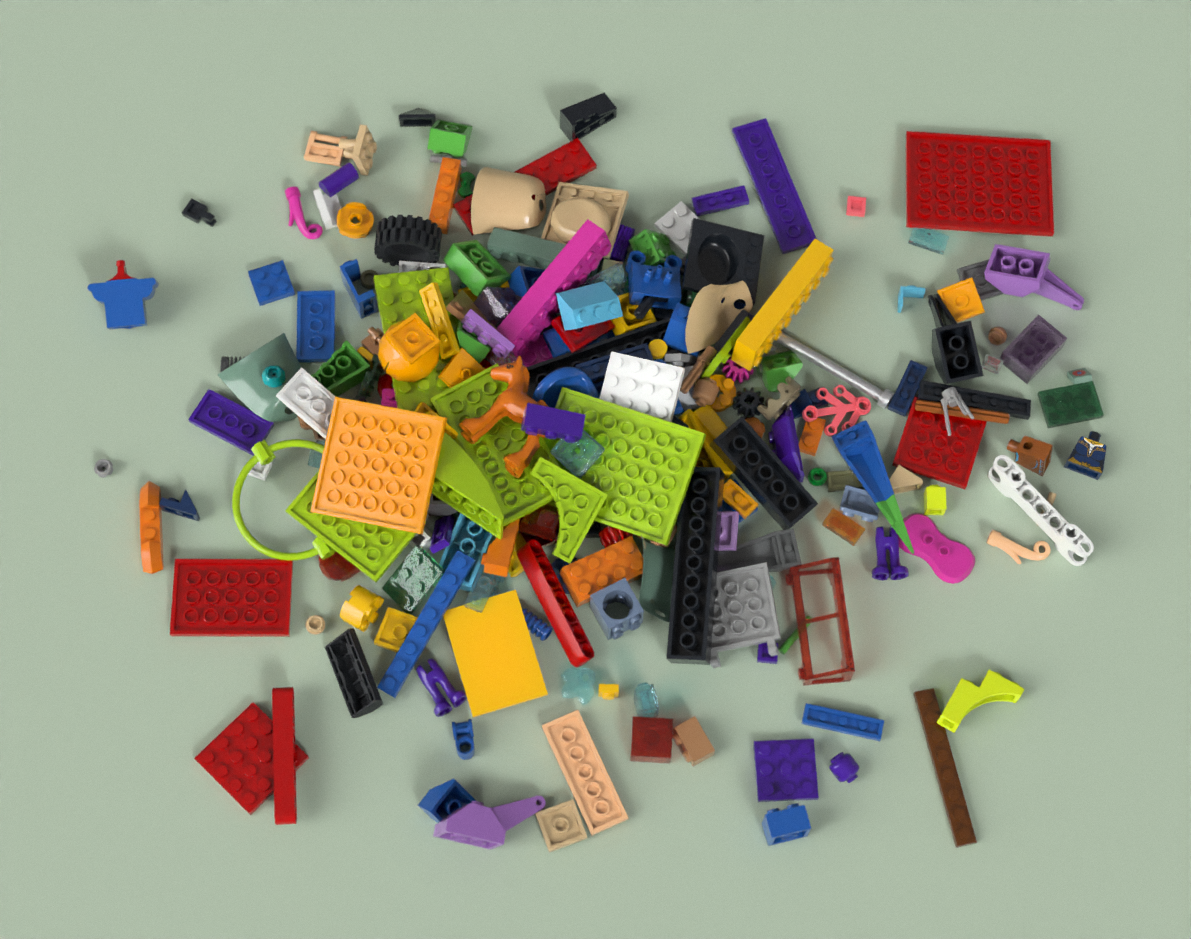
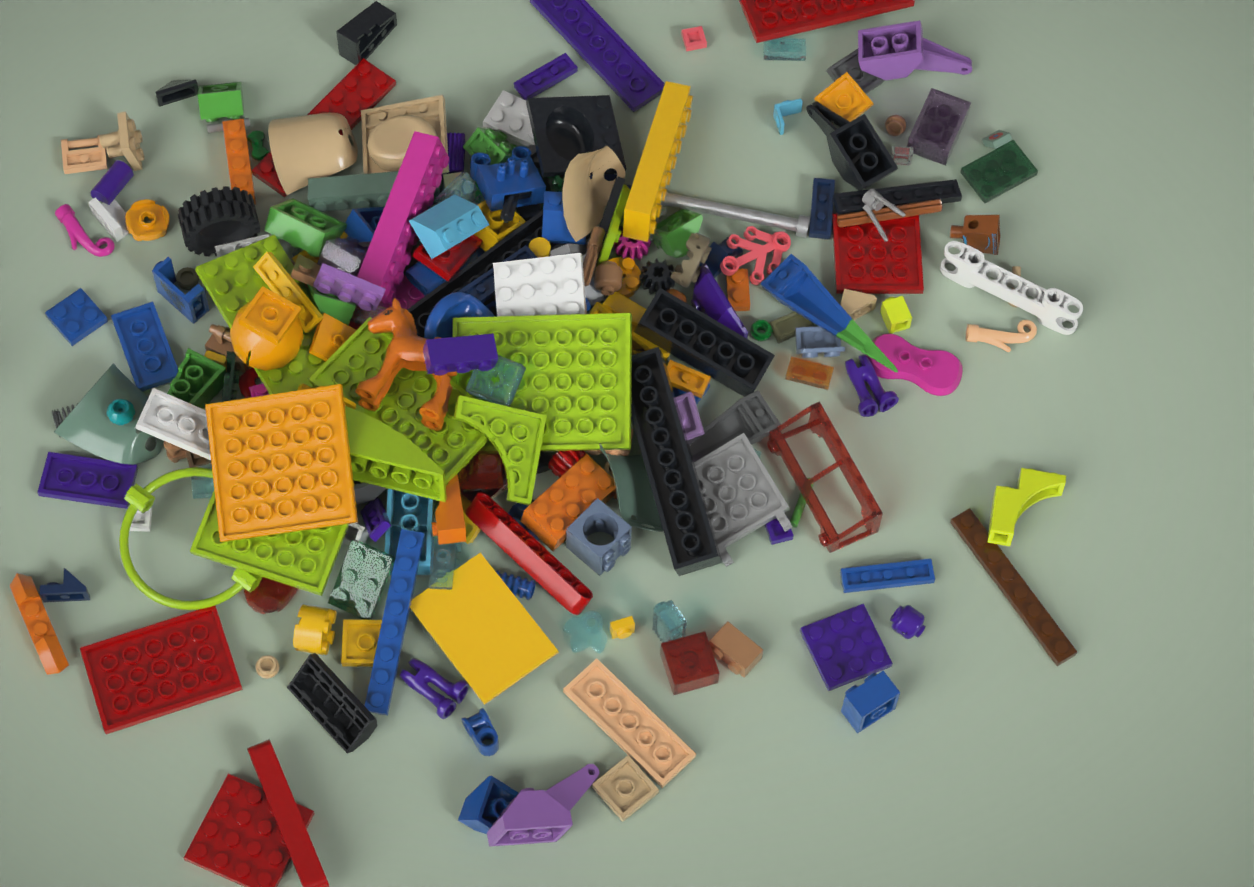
camera: 20 degrees left, 5 degrees down
(1088, 456) = (1038, 218): dark blue torso -> none

